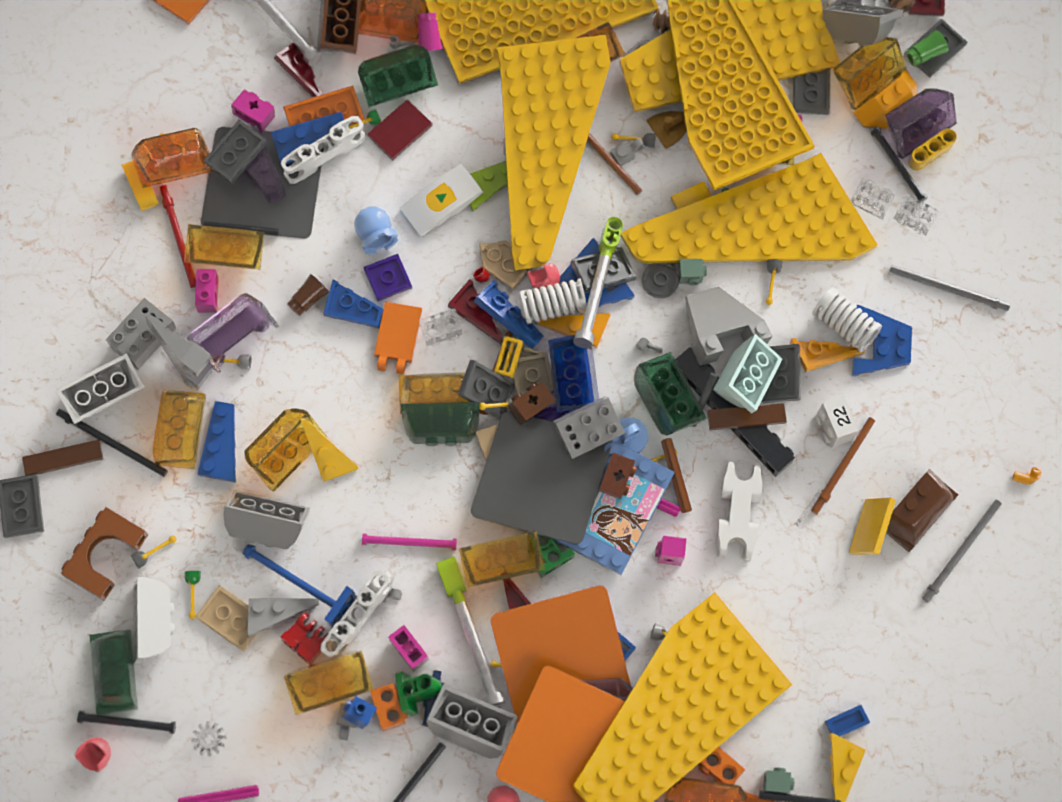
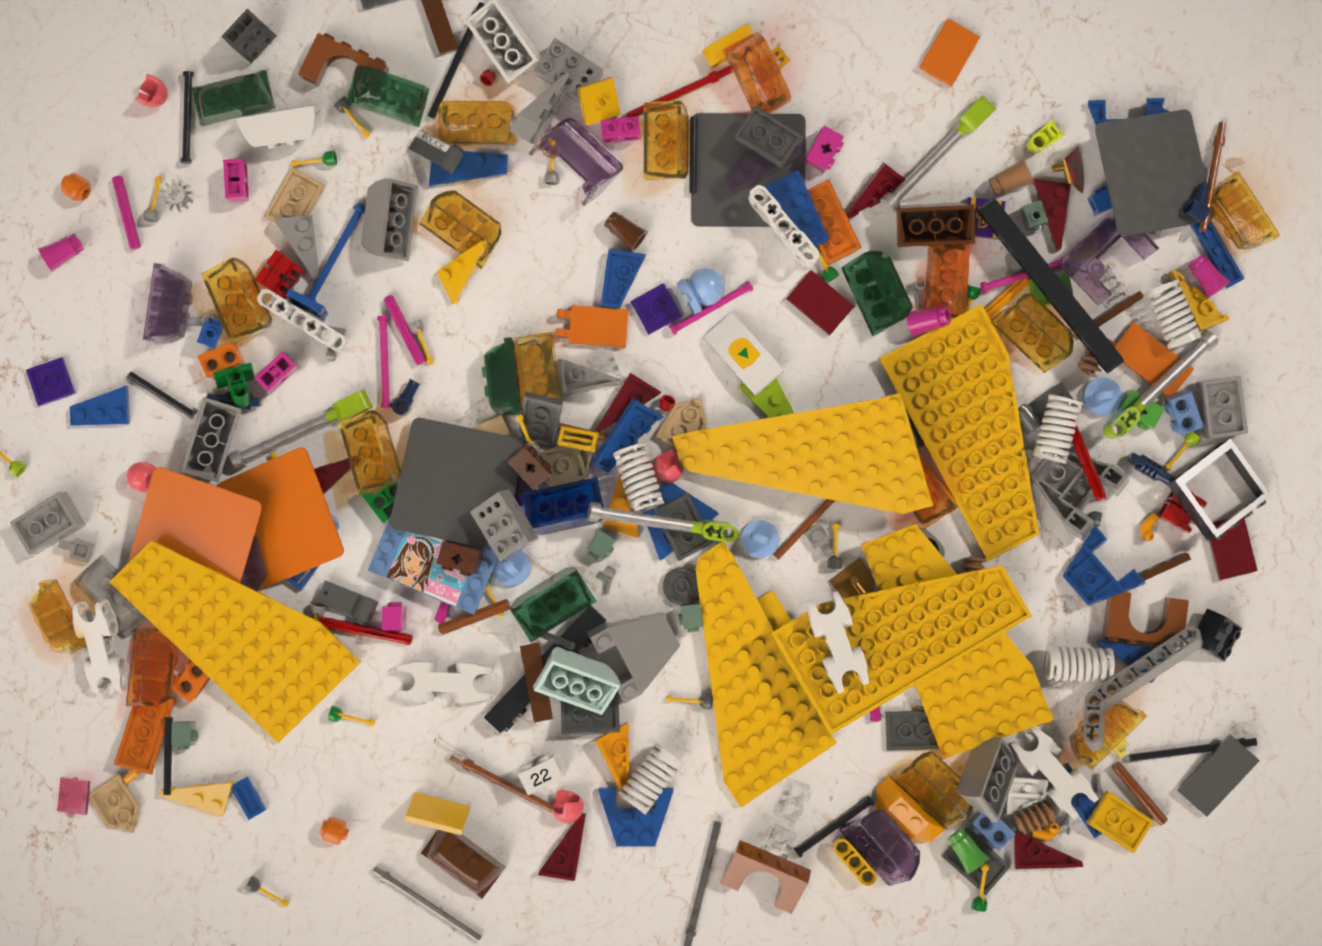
camera: 90 degrees right, 15 degrees up
(52, 642) = (249, 36): none -> dark grey brick
(136, 507) = (387, 95): none -> clear green windscreen
(138, 415) = (488, 77): none -> red hinge
(175, 306) = (598, 101): none -> yellow plate
(200, 467) = (437, 151): none -> dark grey door
(201, 672) = (236, 180): none -> dark pink brick
(224, 768) = (151, 214): none -> hinge
(325, 756) = (167, 305): none -> clear purple windscreen
(379, 505) = (417, 328): none -> hinge
(379, 519) = (404, 329): none -> dark pink axle
(409, 262) = (708, 309): none -> dark pink bar
(448, 522) = (407, 397): none -> dark blue pin
(449, 353) = (580, 379): none -> light grey wing
(614, 348) = (601, 545): none -> sand green brick
(621, 203) = (759, 539): none -> light blue tile
(652, 599) = (348, 601): none -> dark grey door
(683, 582) = (368, 631): none -> red axle
(716, 130) = (842, 656): none -> white piece
(766, 622) = (336, 714): none -> hinge
(870, 402) = (567, 806): none -> coral hair
(885, 634) = (334, 830): none -> orange head
(903, 28) = (989, 830): none -> medium blue brick
(920, 411) = (565, 857): none -> dark red wing
(928, 235) = (750, 858): none -> arch
(937, 723) = (254, 885): none -> hinge
(975, 46) = (980, 903): none -> hinge

